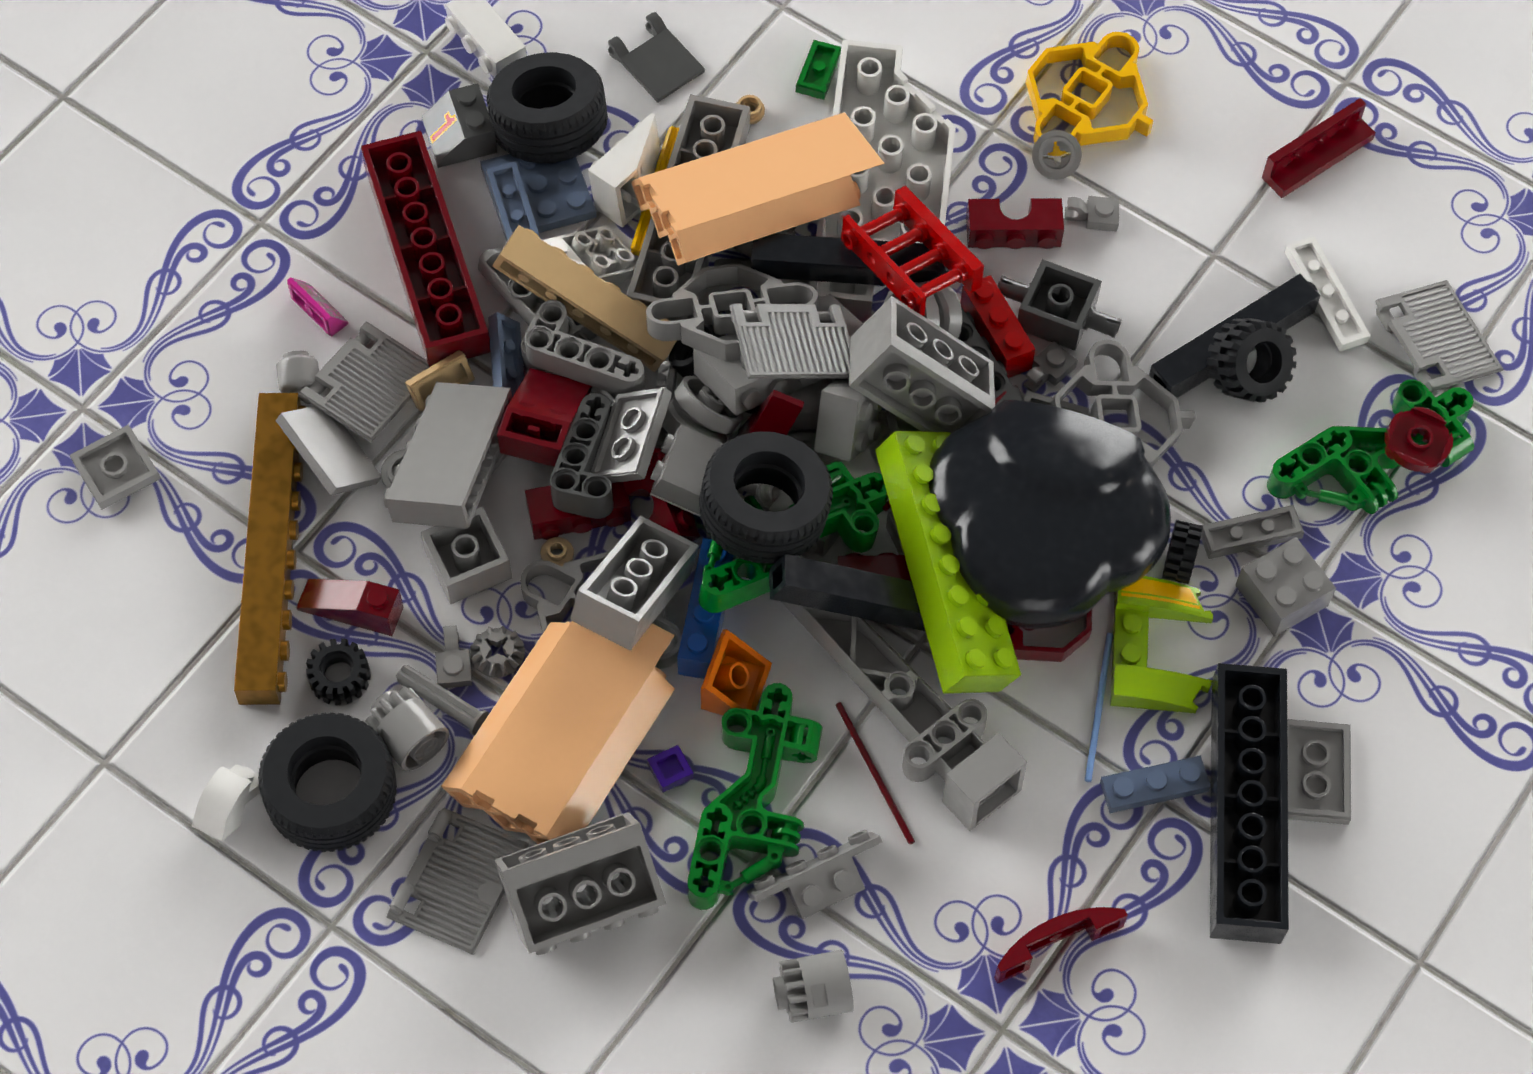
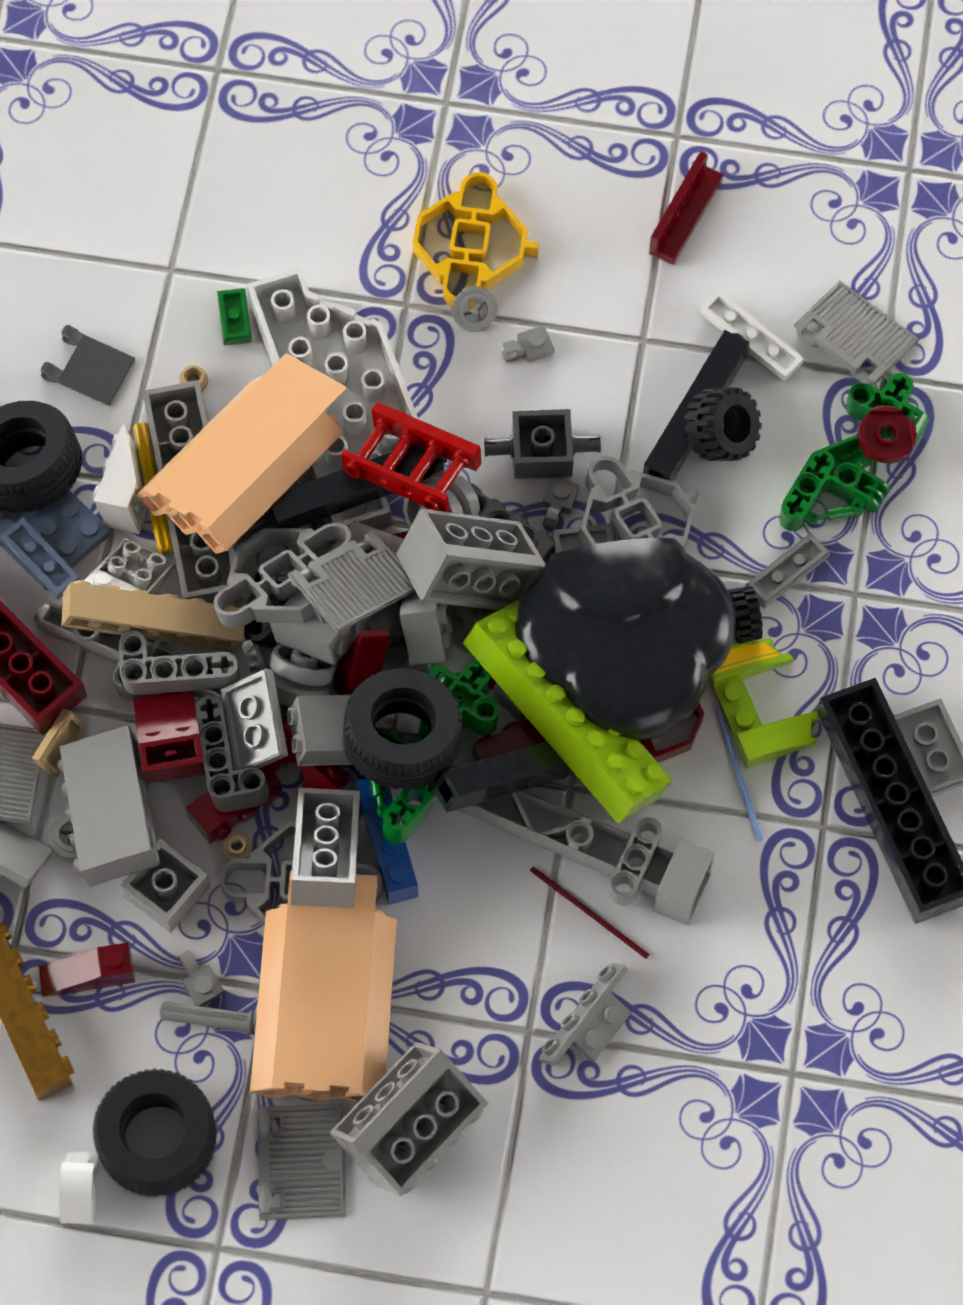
camera: 25 degrees left, 5 degrees up
(333, 654) = (114, 1052): black tyre -> none
(407, 727) = (195, 1055): light grey gear -> none
(497, 665) = (239, 965): light grey gear -> none
(505, 352) = (104, 694): sand blue plate -> none
(670, 768) = (426, 987): dark purple plate -> none
(734, 676) = (440, 888): orange slope -> none
(769, 741) = (495, 927): green beam -> none
(814, 986) = (634, 1112): light grey gear -> none
(991, 228) = (449, 399): dark red arch -> none
(1000, 326) = (507, 486): red brick -> none
(1096, 921) = (824, 955): dark red slope -> none
(1155, 784) = (813, 818): sand blue plate -> none
(1285, 586) = (838, 606): light grey brick -> none

